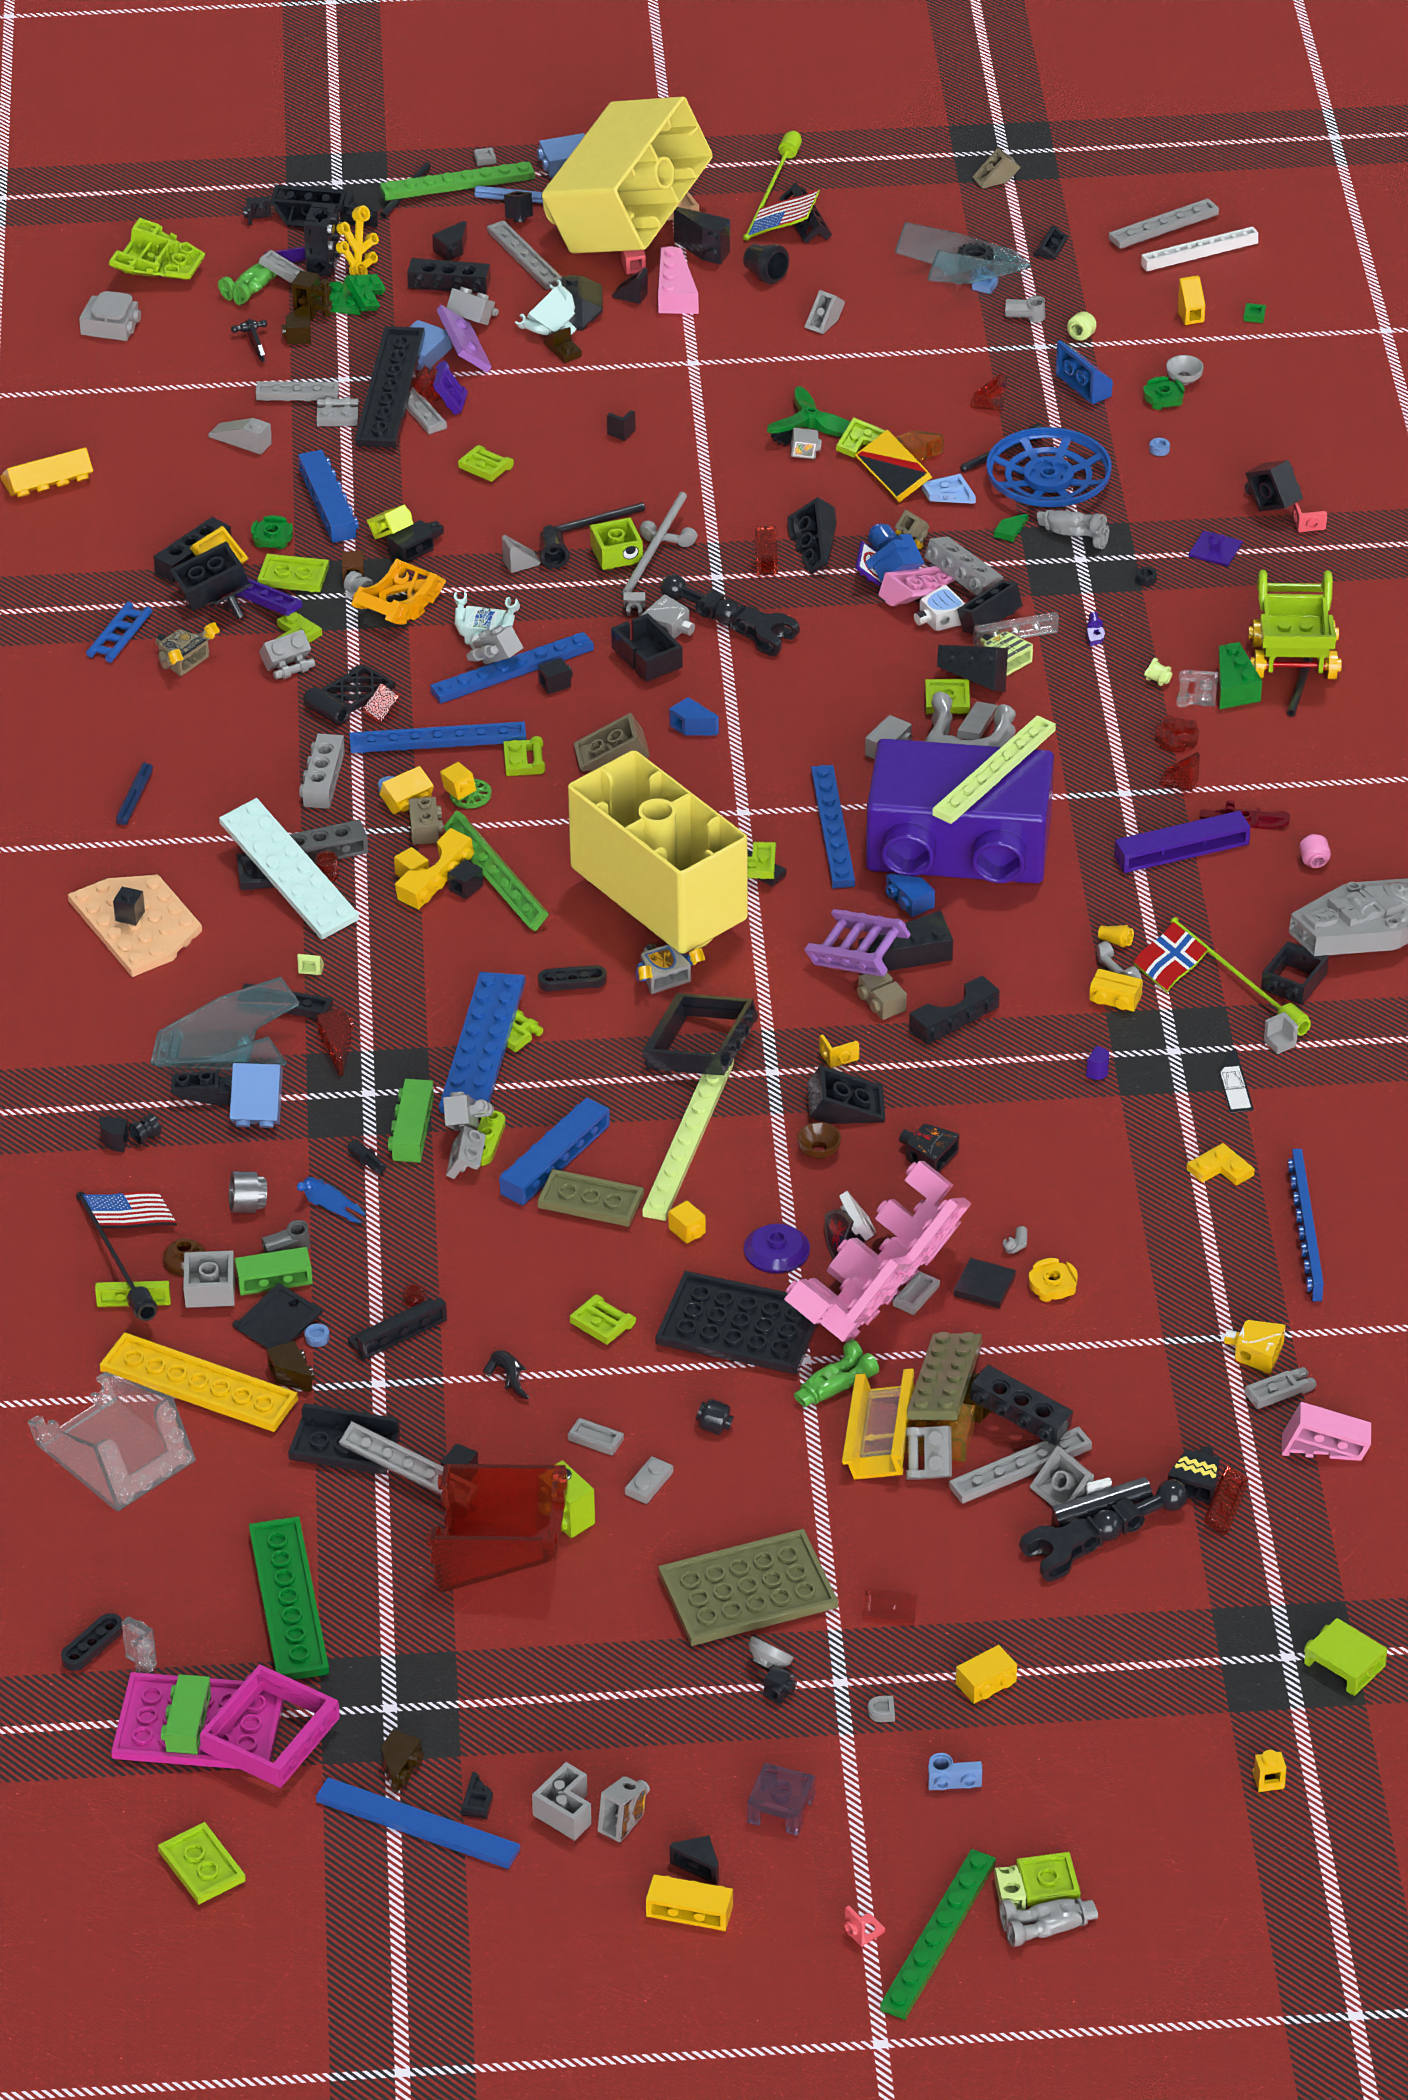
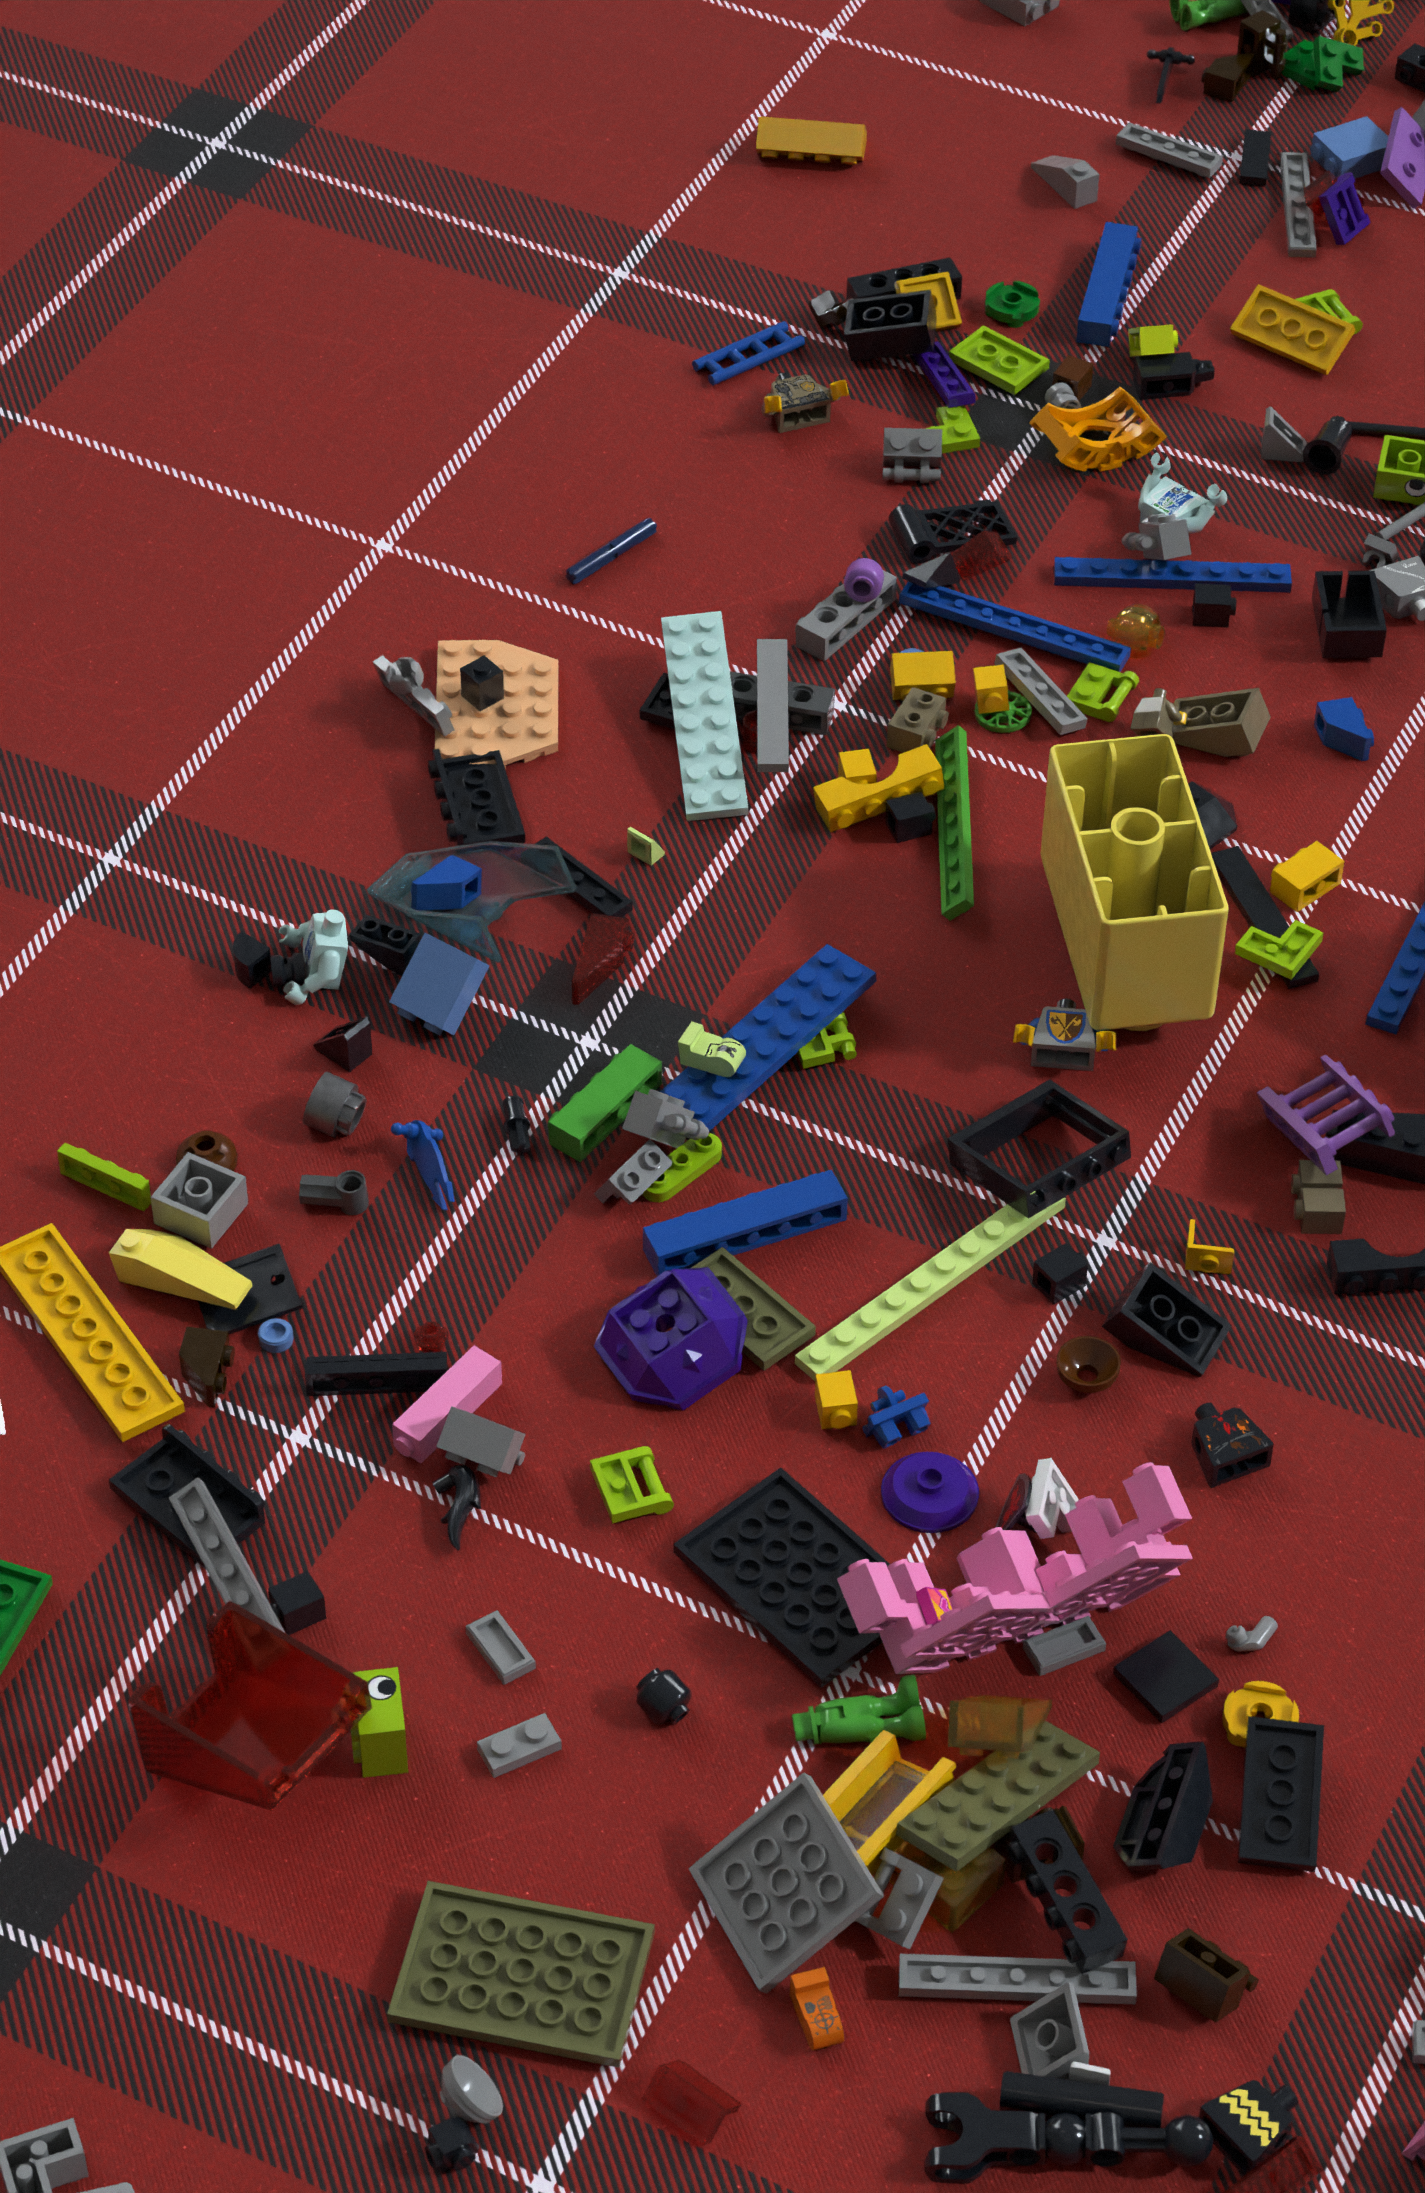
camera: 30 degrees right, 5 degrees up
(83, 929) = (405, 681): none -> light grey plate
(129, 1211) = (177, 1064): flag -> none
(154, 585) = (826, 310): none -> dark brown bracket
(162, 1101) = (323, 952): none -> light aqua torso
(178, 979) = (476, 799): none -> black bracket
(208, 1035) = (447, 885): none -> blue slope
(219, 1154) = (347, 1044): none -> black slope
(223, 1324) = (176, 1267): none -> light yellow wedge
(231, 601) = (897, 367): black shield -> none
(264, 1271) = (296, 1225): bright green brick -> none
(329, 744) = (863, 580): none -> medium lavender head
(330, 844) = (772, 706): none -> light grey tile
(337, 412) = (1191, 195): light grey plate -> none
(355, 373) = (1255, 157): none -> black tile
(364, 724) = (934, 573): none -> black slope
(390, 386) = (1275, 182): black plate -> none
(457, 1324) = (462, 1386): none -> bright pink brick
(461, 1062) = (710, 1051): none -> yellowish green leg
(473, 480) = (1292, 329): none -> yellow plate
(489, 771) = (1041, 691): none -> light grey plate
(501, 1331) = (481, 1441): none -> light grey brick
(519, 708) = (1137, 628): none -> clear yellow plant
(570, 1247) = (687, 1360): none -> dark purple piece
(572, 978) = (943, 1001): black plate -> none
(576, 757) = (1156, 715): none -> dark tan piece
(725, 1214) = (884, 1422): none -> blue hips
(740, 810) = (1306, 876): none -> yellow brick
(763, 1099) = (1060, 1273): none -> black brick
(840, 1295) = (933, 1604): none -> dark pink tile
(865, 1470) = (785, 1882): none -> light grey plate
(918, 1341) = (996, 1724): none -> clear yellow slope
(924, 1528) = (816, 2008): none -> orange leg
(1038, 1345) = (1167, 1810): none -> black wedge
(1095, 1309) = (1281, 1794): none -> black plate
(1120, 1415) = (1203, 1975): none -> dark brown brick

